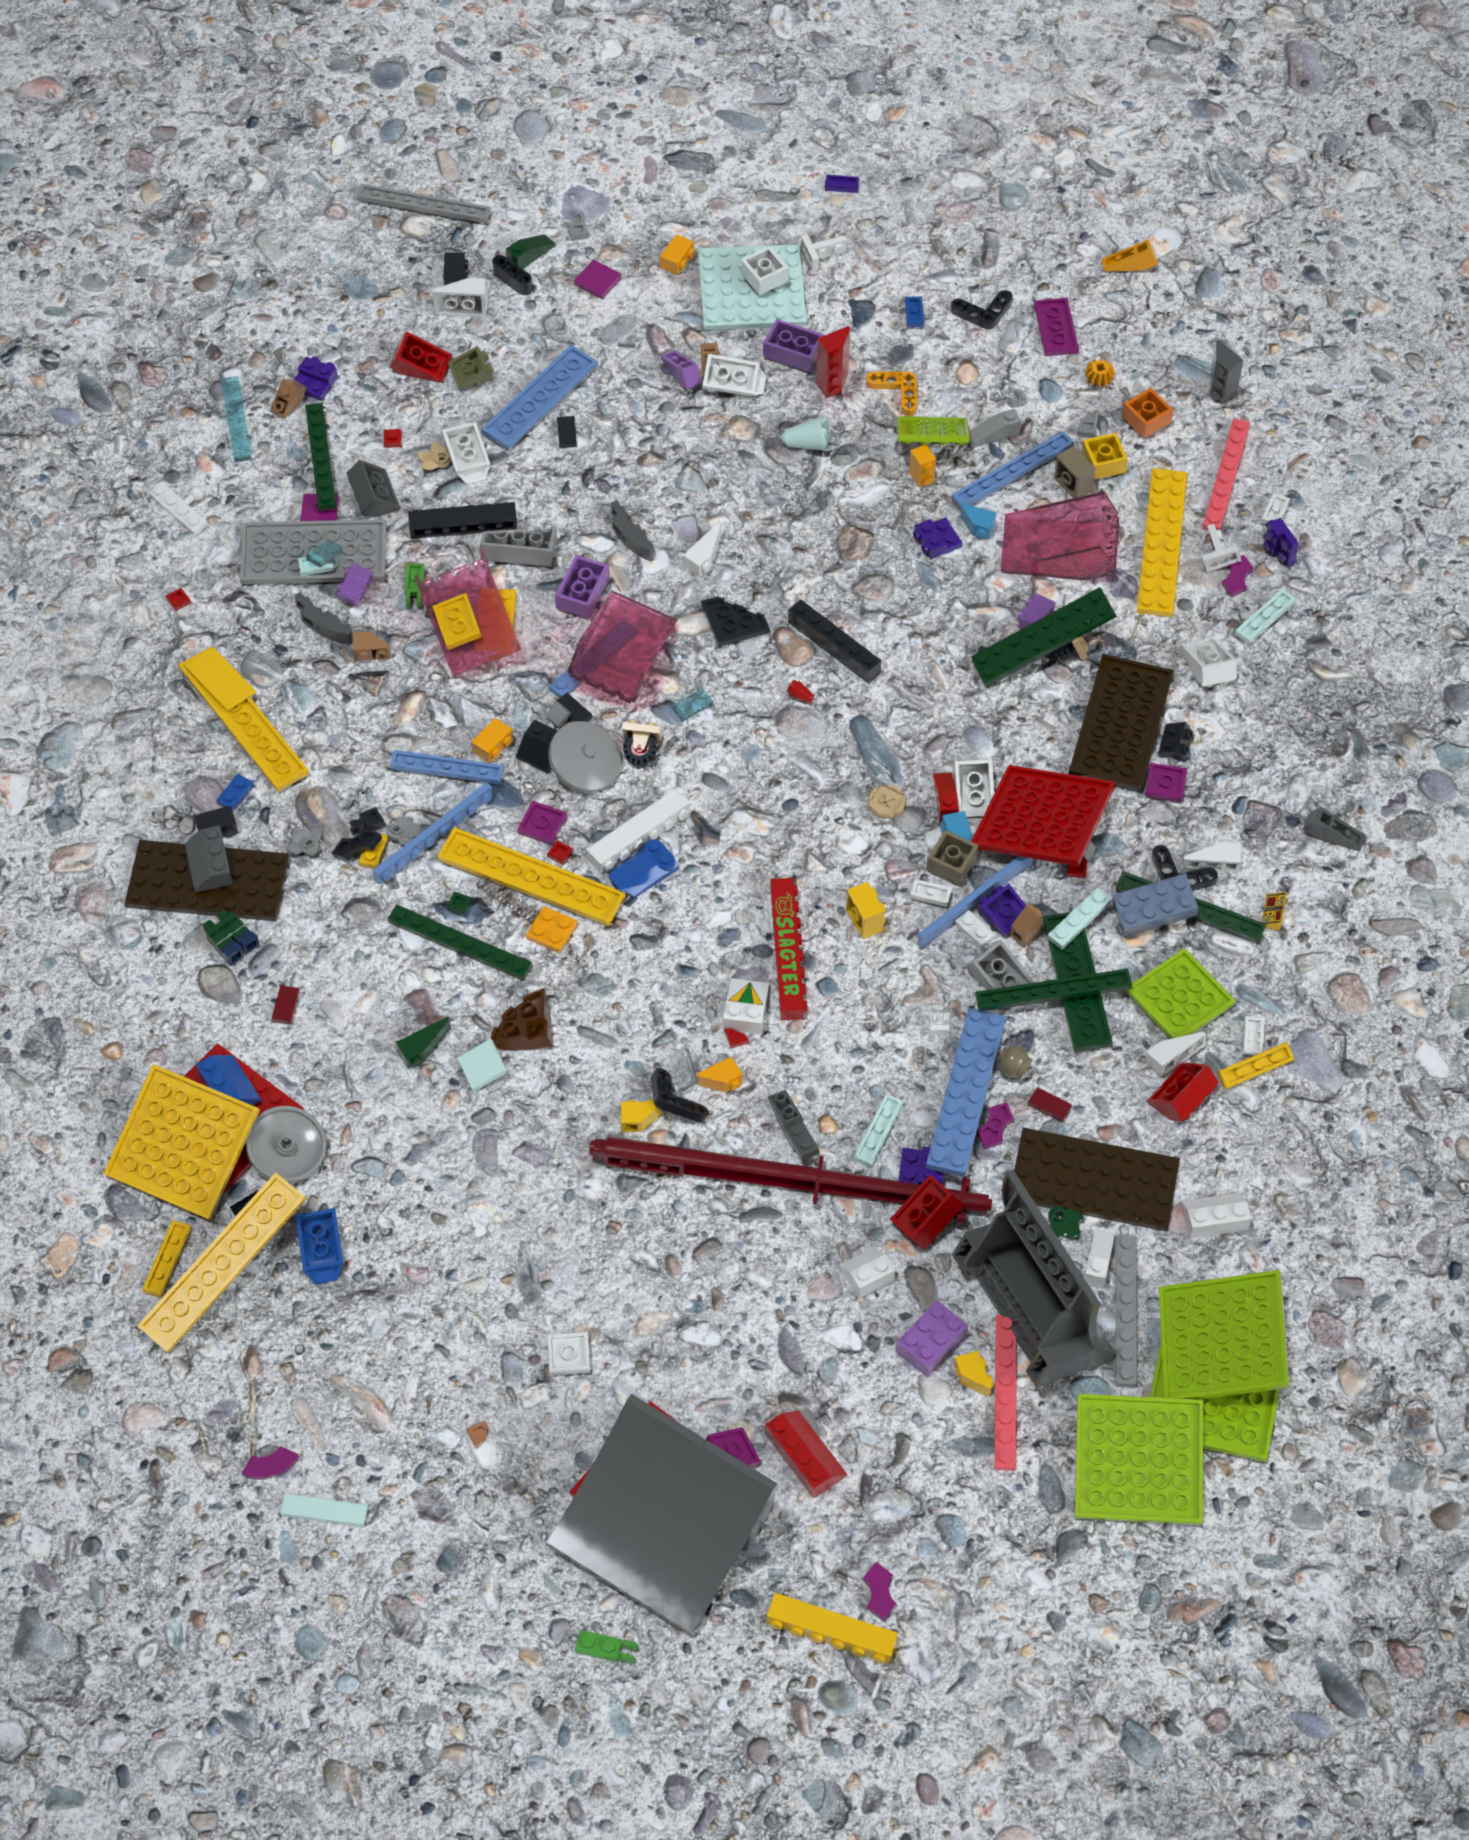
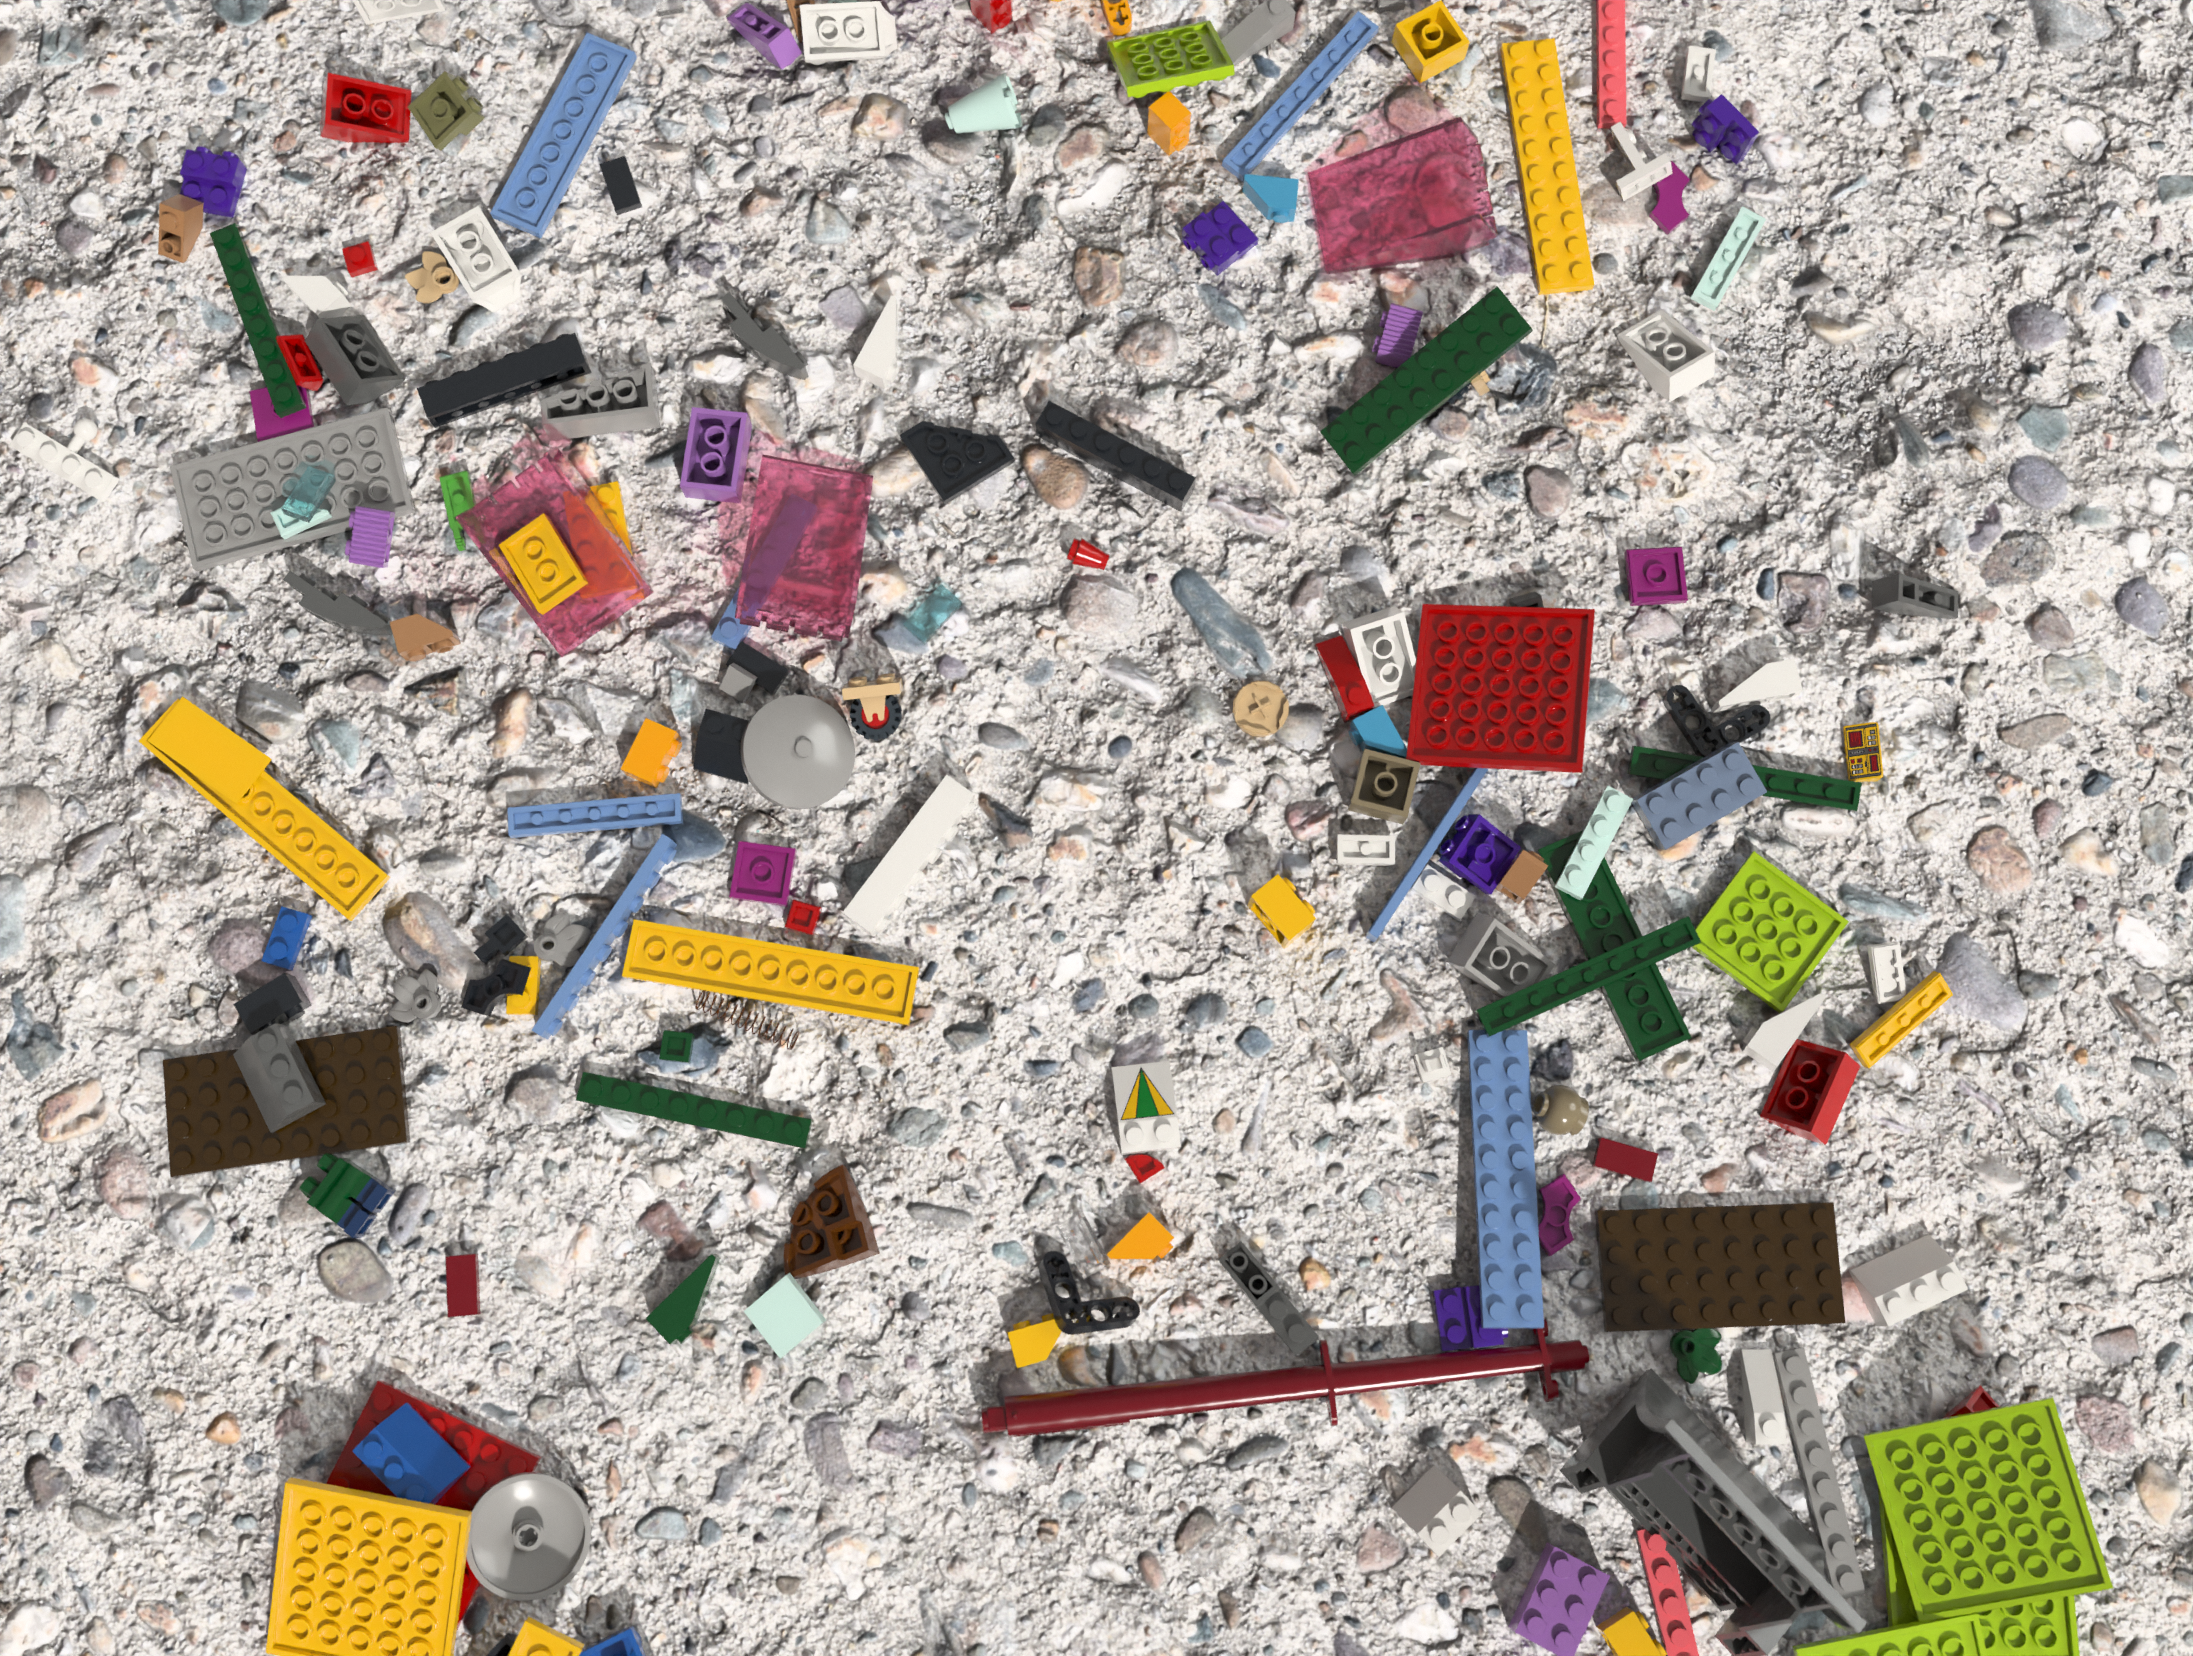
camera: 15 degrees left, 20 degrees up
(178, 599) = (108, 621): red tile -> none
(236, 419) = (111, 281): clear light blue tile -> none
(340, 483) = (300, 361): none -> red slope
(361, 449) = (319, 295): none -> white slope
(551, 929) = (825, 1053): light orange plate -> none
(644, 869) = (932, 917): blue slope -> none
(787, 949) = (1181, 1000): red brick -> none
(878, 1130) = (1390, 1267): light aqua tile -> none
(927, 1212) = (1501, 1401): red slope -> none
(1074, 472) = (1395, 82): dark tan brick -> none
(1121, 721) = (1567, 490): dark brown plate -> none
(1176, 740) = (1652, 502): black bracket -> none

